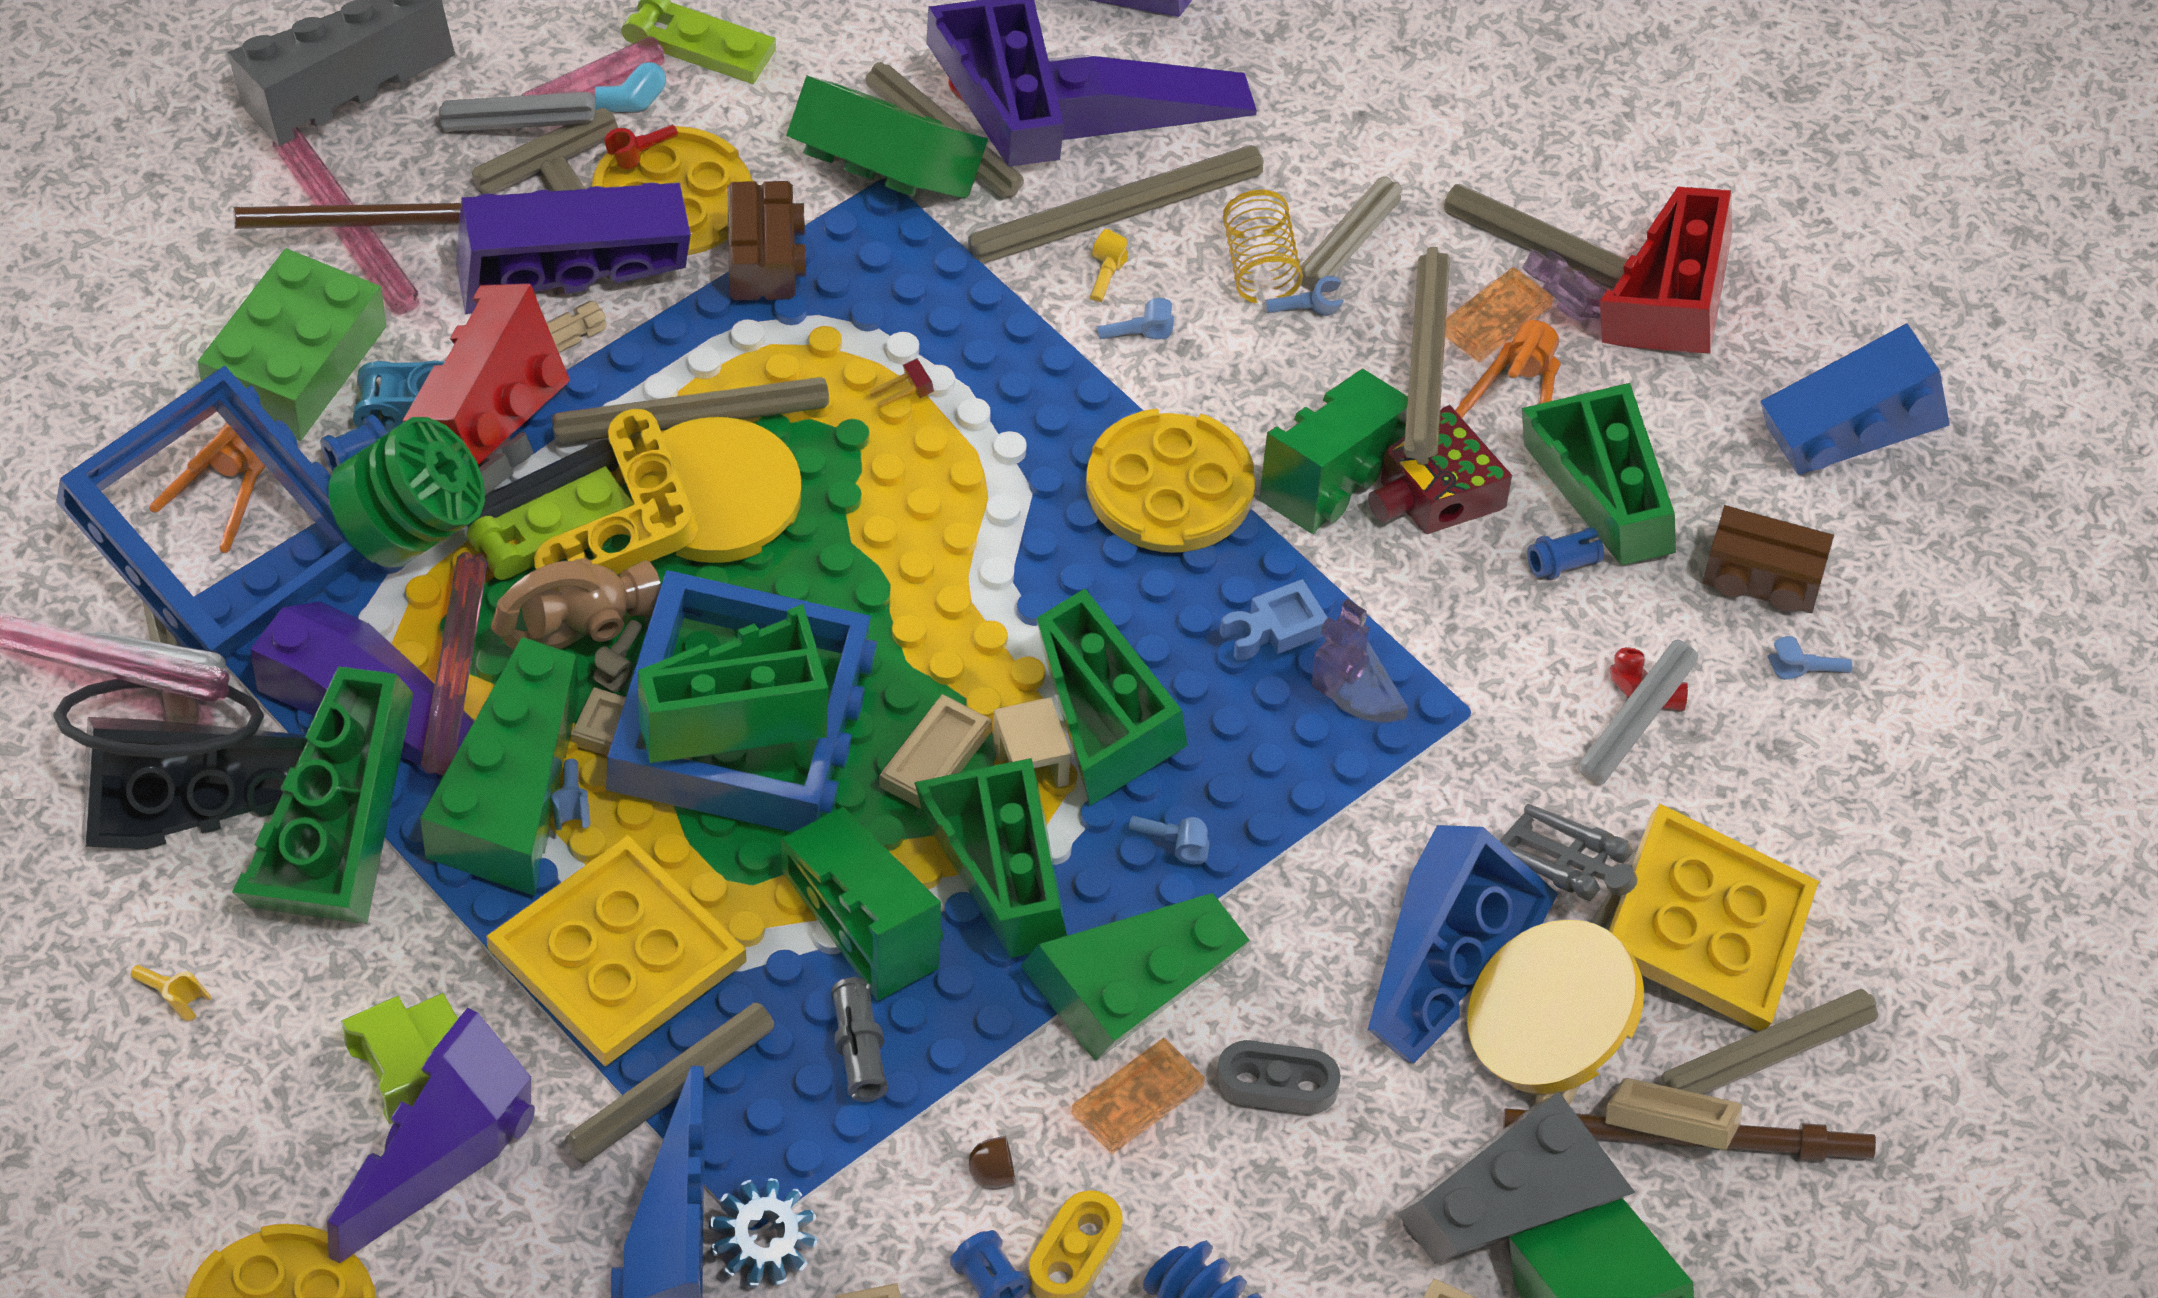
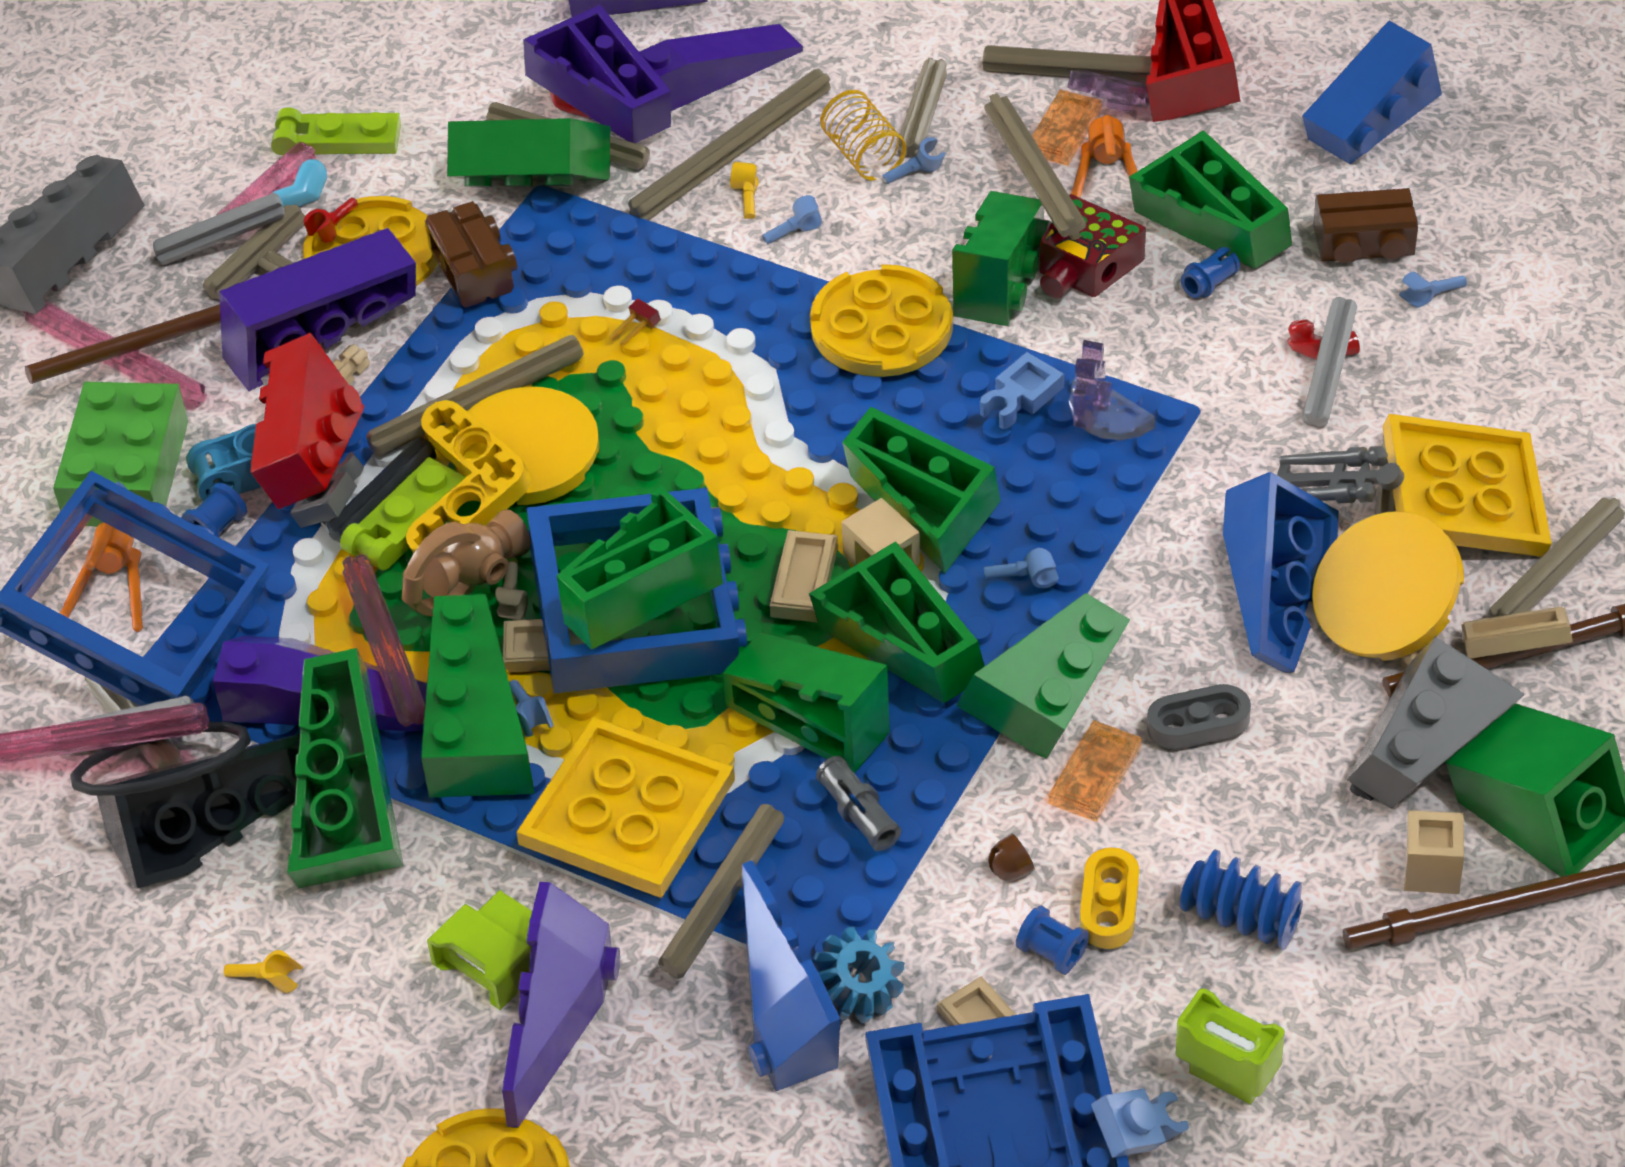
camera: 15 degrees left, 5 degrees down
(406, 492) = (283, 521): green wheel -> none

